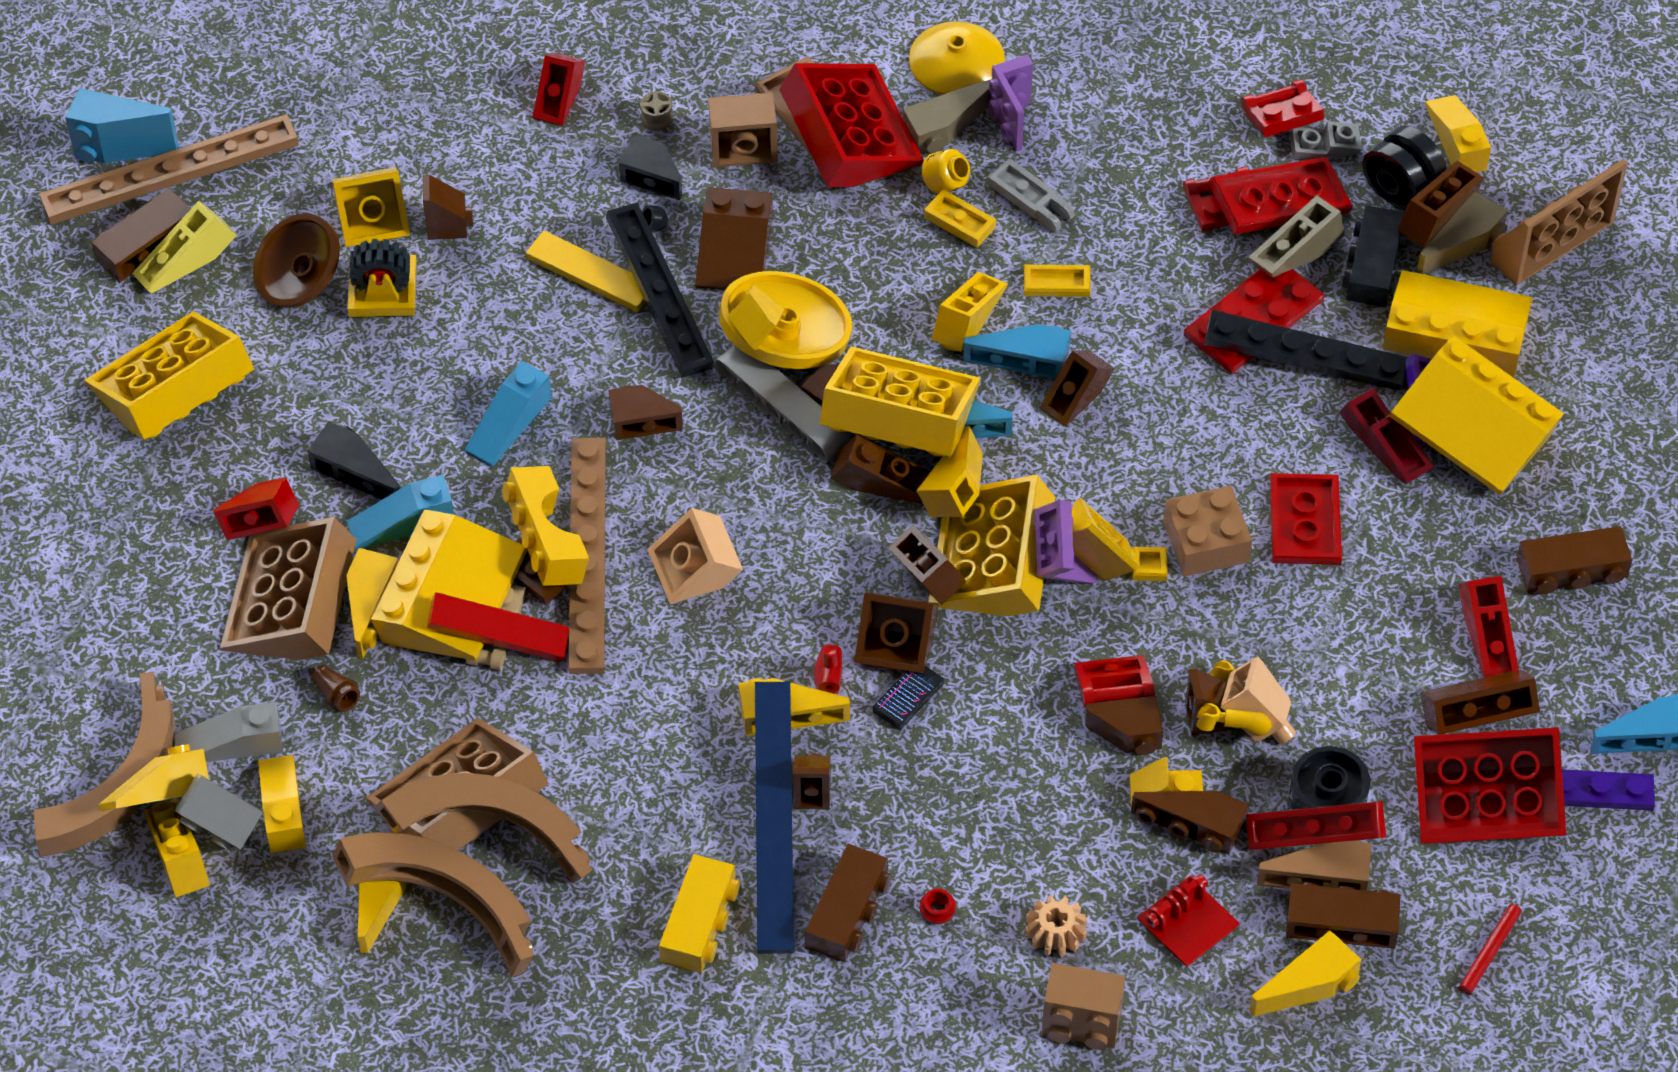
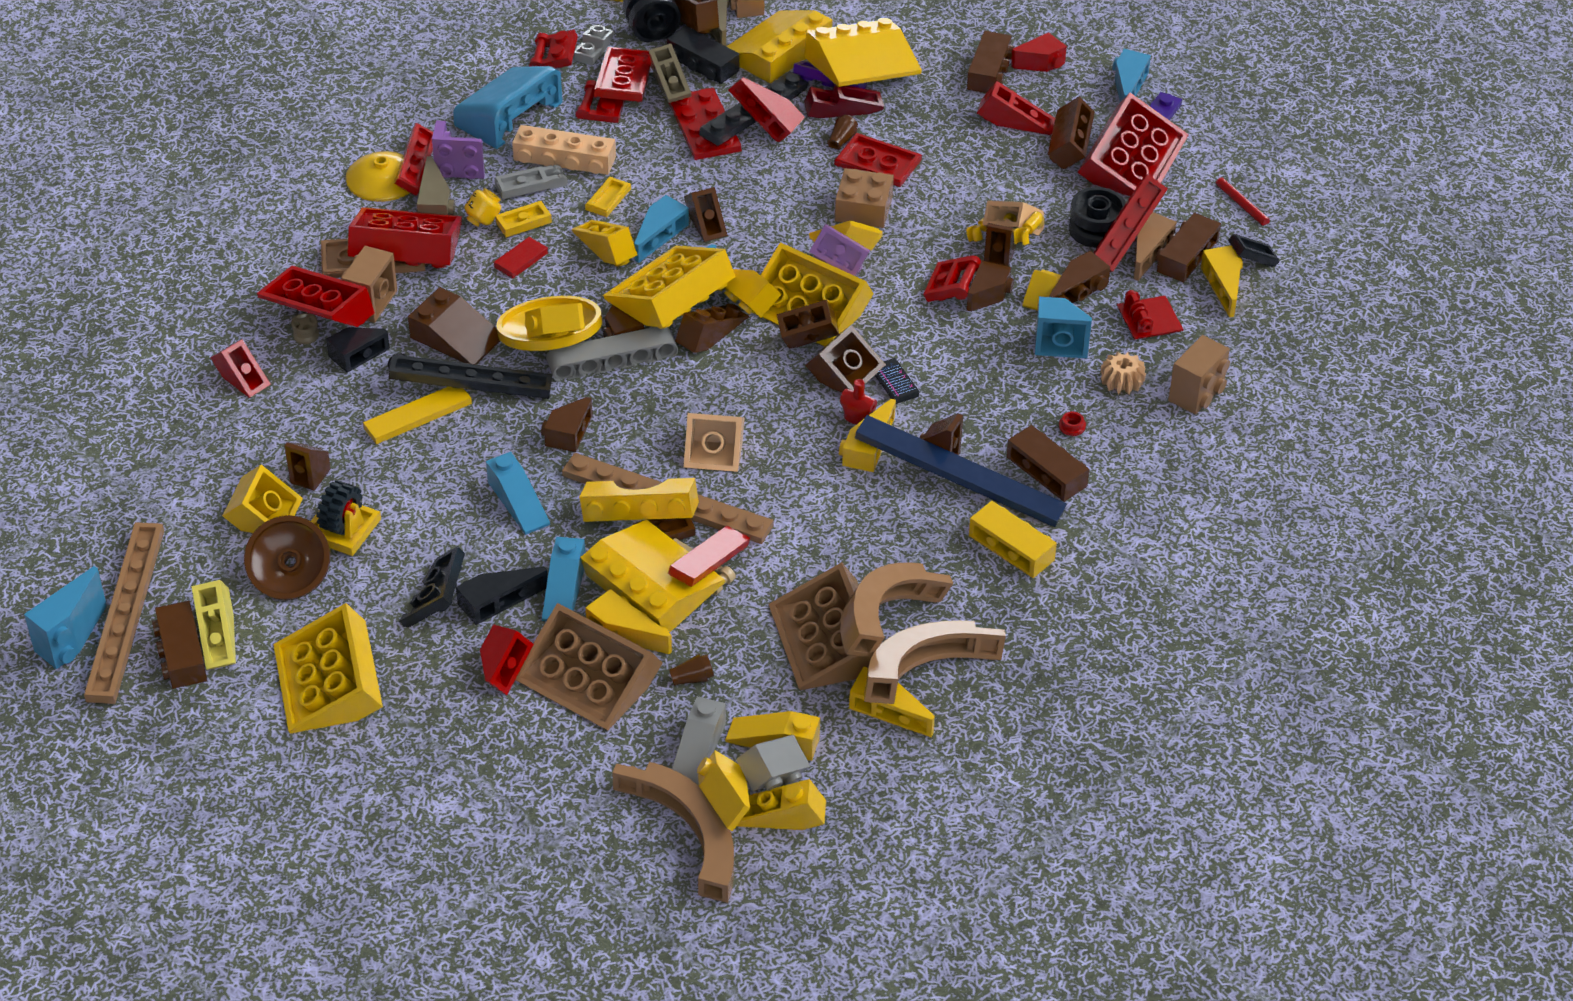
camera: 65 degrees left, 10 degrees down
(323, 409) = (438, 589): none -> black wing
(677, 95) = (320, 296): none -> red slope
(897, 246) = (521, 257): none -> red tile
(972, 72) = (414, 159): none -> red tile
(1076, 821) = (1061, 329): none -> dark azure slope
(1102, 201) = (564, 149): none -> light nougat brick
(1148, 105) = (494, 106): none -> dark azure windscreen
(1296, 375) = (768, 108): none -> red slope
(1325, 459) = (843, 130): none -> reddish brown cone
(1378, 991) = (1253, 250): none -> black tile
(1631, 608) = (1039, 54): none -> red slope

